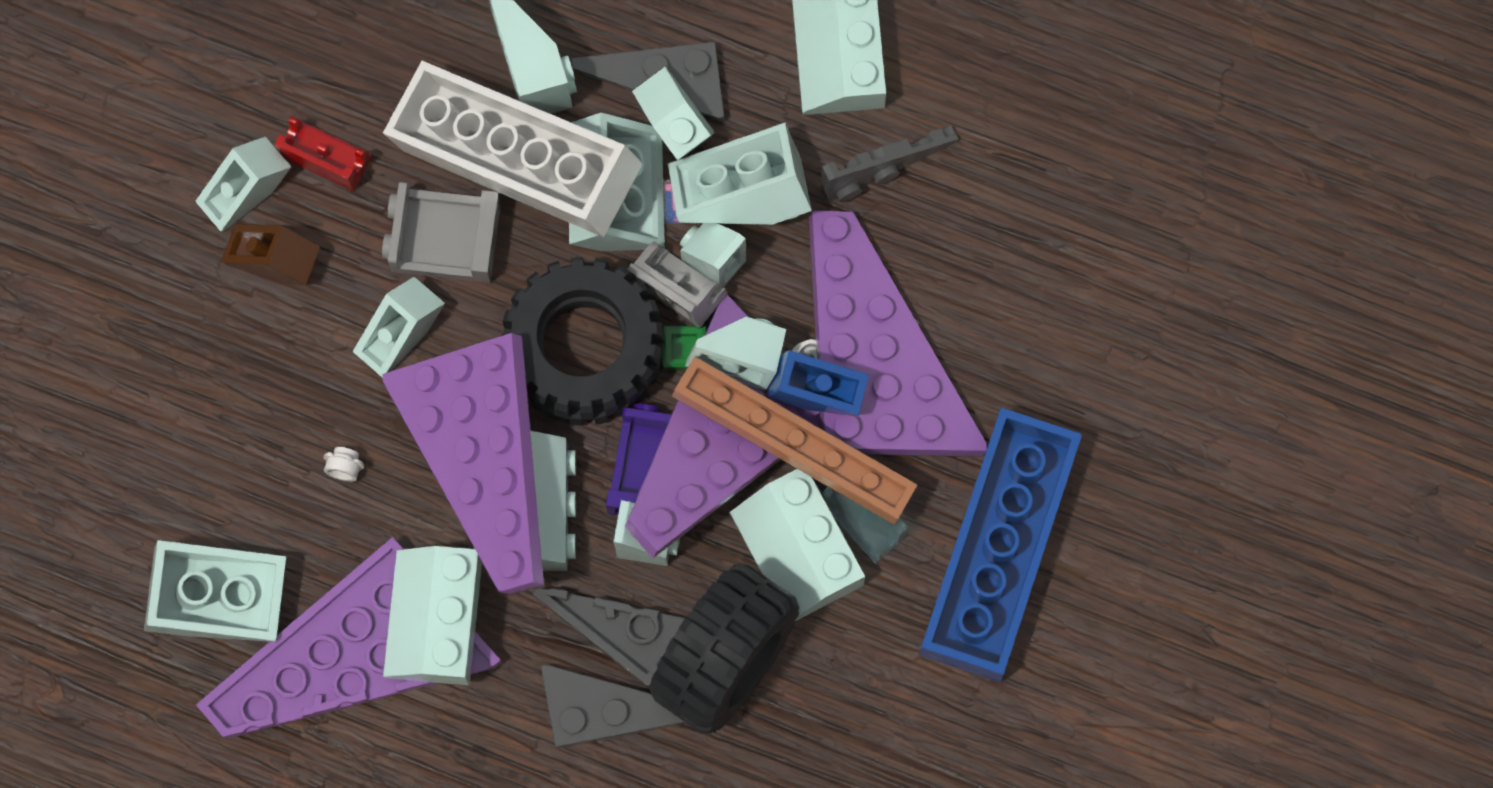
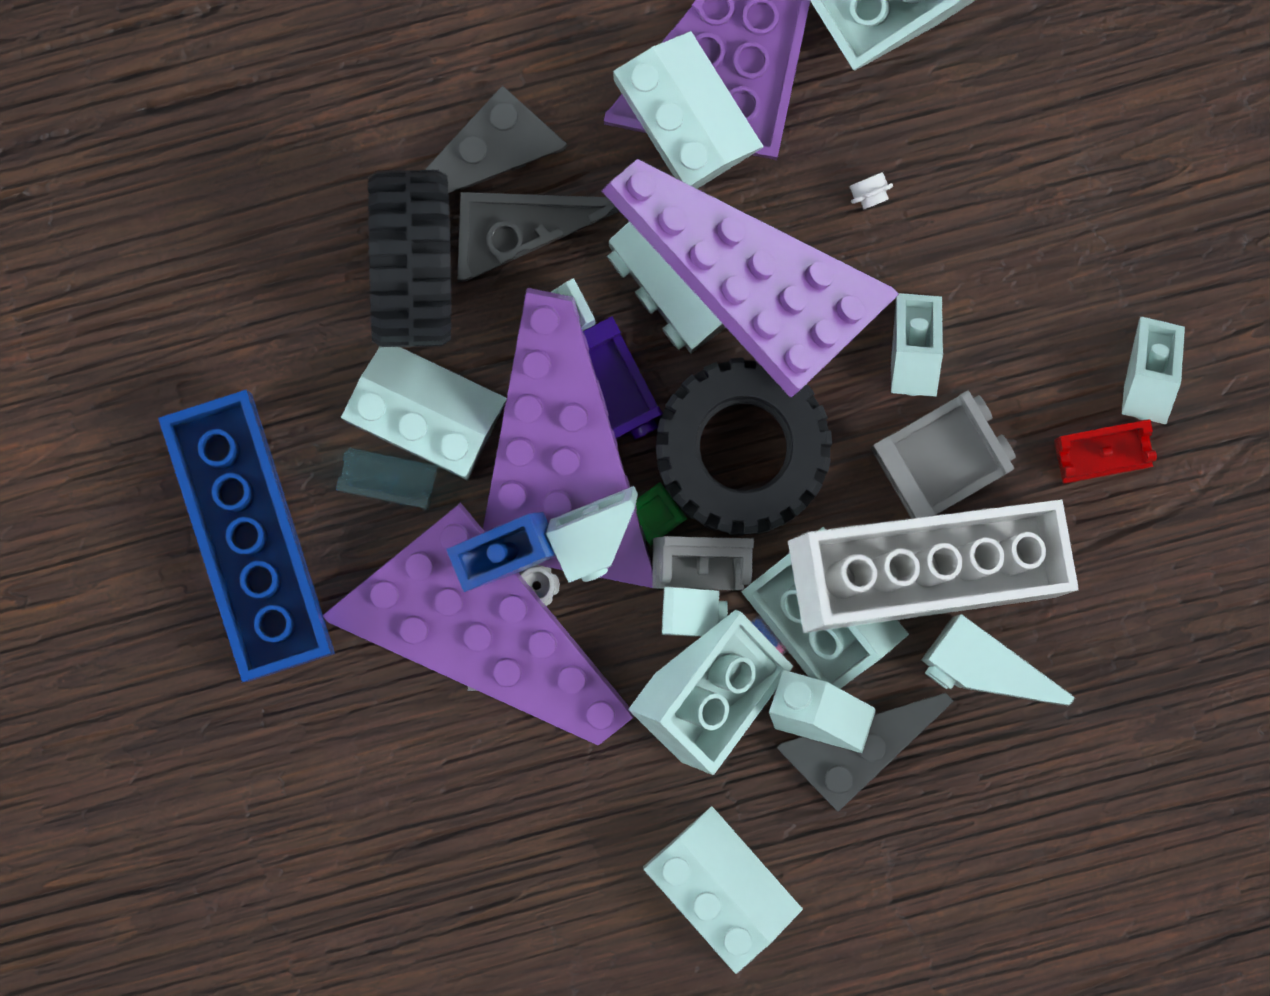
camera: 140 degrees right, 10 degrees up
(271, 253) = (1078, 325): reddish brown slope -> none
(794, 440) = (486, 487): nougat plate -> none
(880, 164) = (600, 808): dark grey wing -> none

